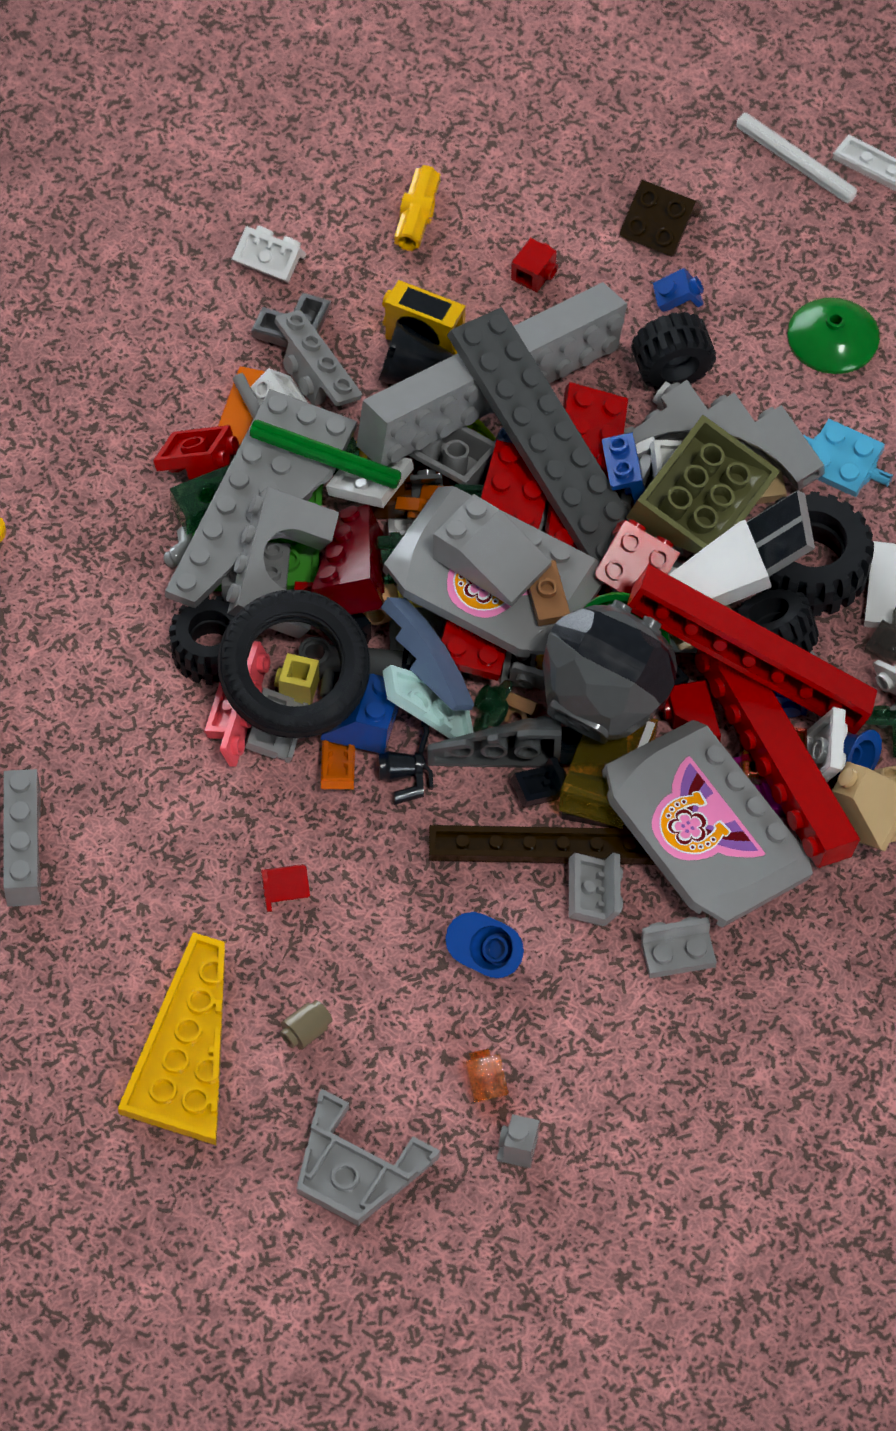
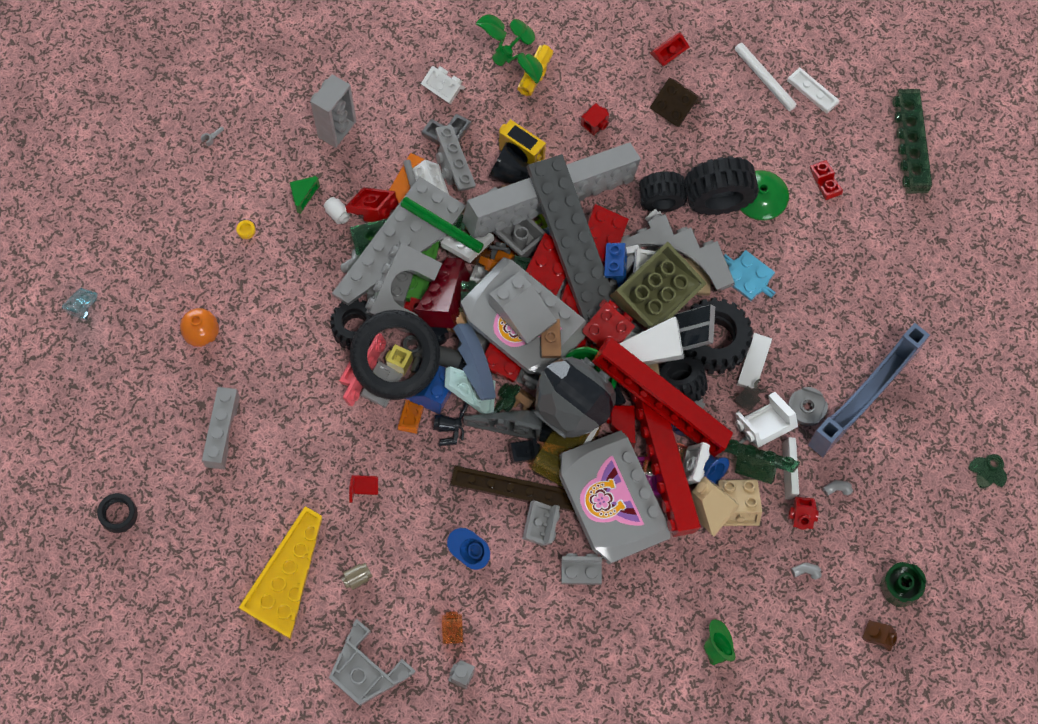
camera: 10 degrees right, 10 degrees up
(73, 453) = (303, 191): none -> green slope
(101, 314) = (333, 110): none -> light grey brick
(138, 473) = (336, 210): none -> white brick
(361, 189) = (495, 28): none -> green plant
(631, 142) = (670, 49): none -> red slope
(678, 289) = (676, 150): blue bracket -> none
(768, 323) = (721, 186): none -> black tyre

